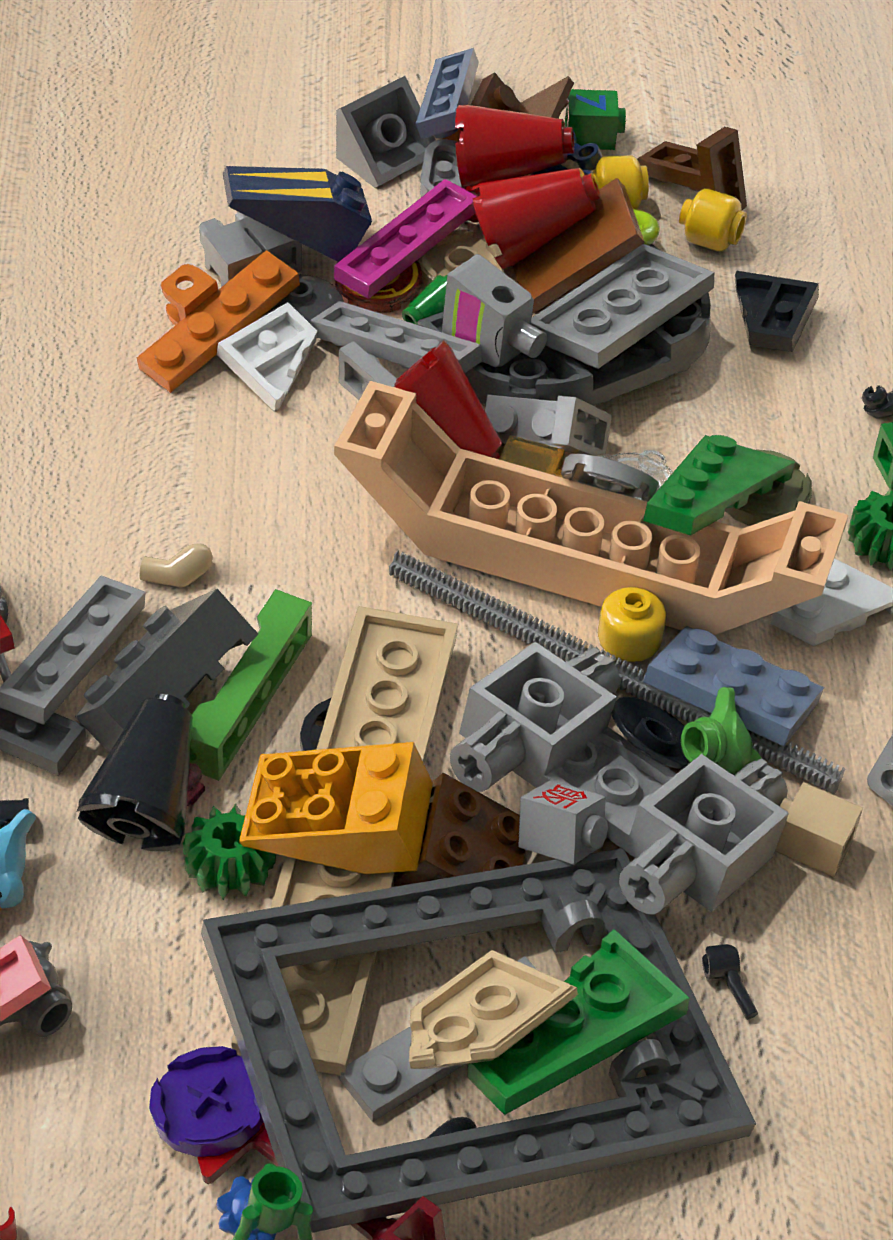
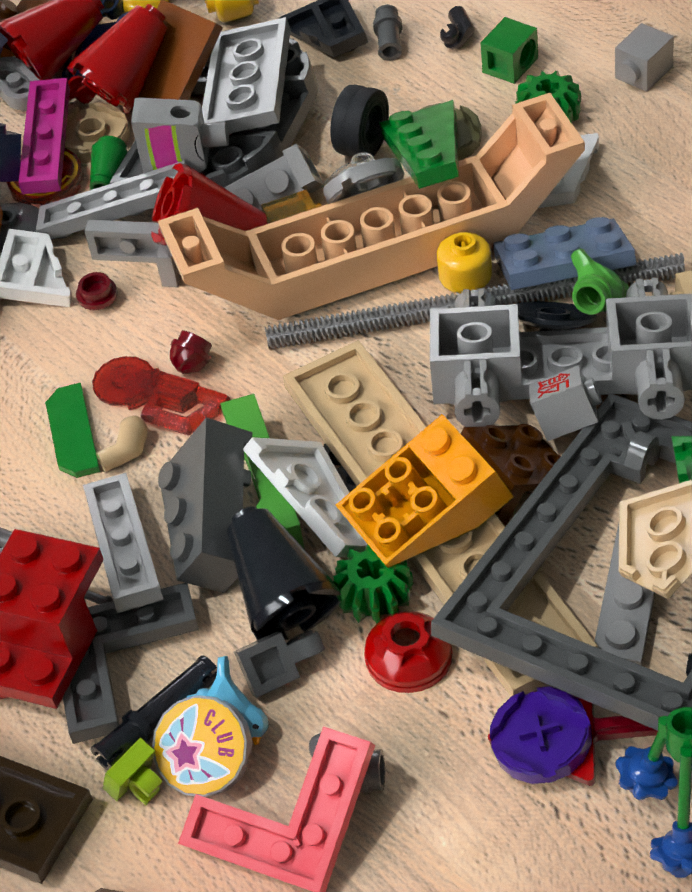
camera: 30 degrees left, 0 degrees up
(75, 851) = (272, 661): none -> dark grey plate
(154, 521) = (72, 431): none -> green piece
(181, 951) = (406, 667): none -> red piece
(248, 522) = (136, 383): none -> clear red piece
(266, 714) = (310, 486): none -> white wing
(303, 412) = (96, 291): none -> dark red plate
(313, 526) = (189, 352): none -> dark red plate
(682, 416) = (357, 120): none -> black tyre
(824, 351) = (388, 28): none -> dark grey pin

